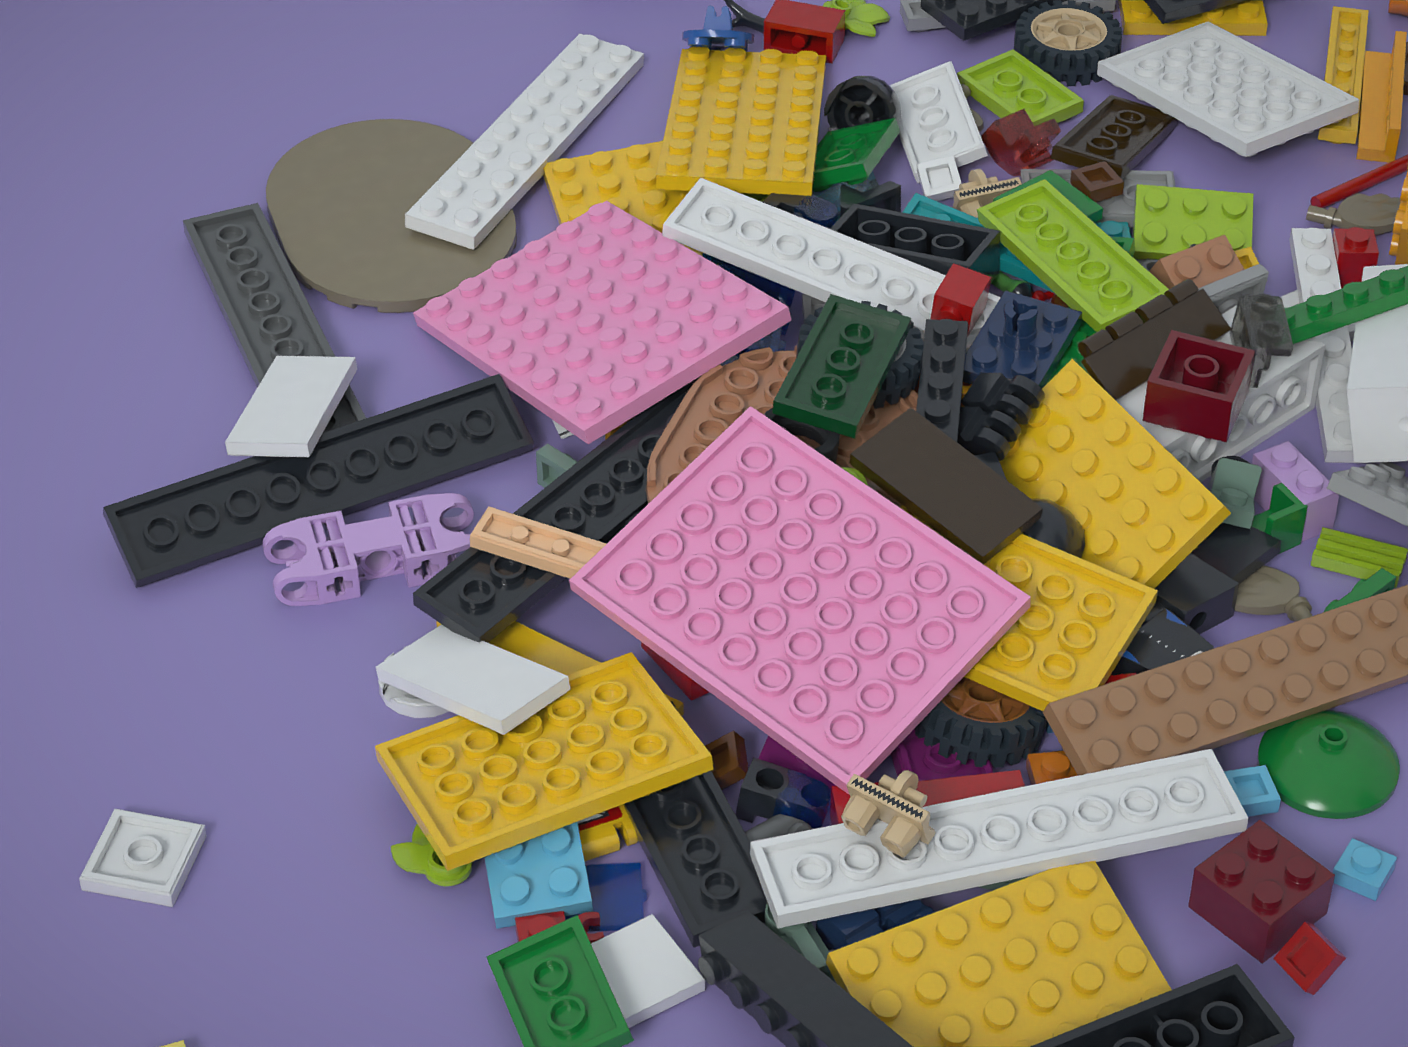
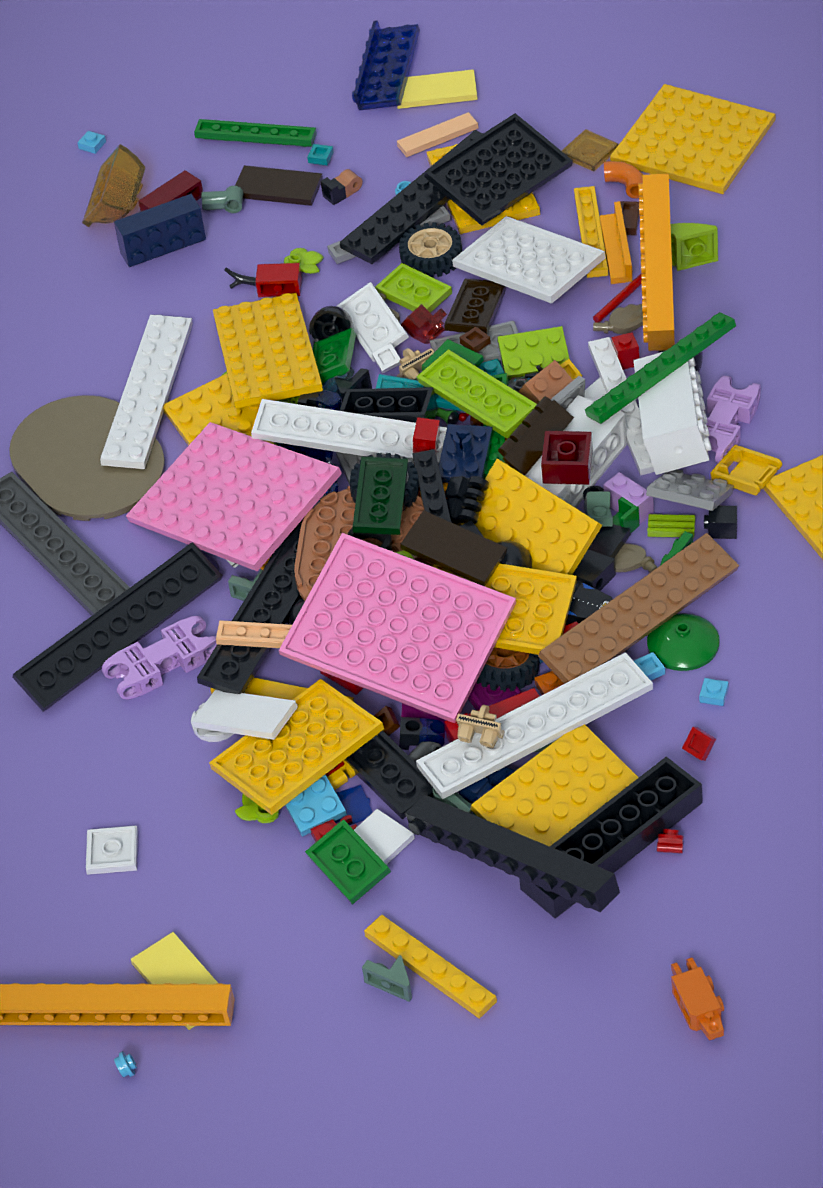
camera: 10 degrees left, 5 degrees up
(291, 406) = (88, 590): white tile -> none
(718, 32) = (231, 294): blue plate -> none
(1260, 890) = (667, 716): dark red brick -> none
(1262, 327) = (590, 417): clear smoke bracket -> none

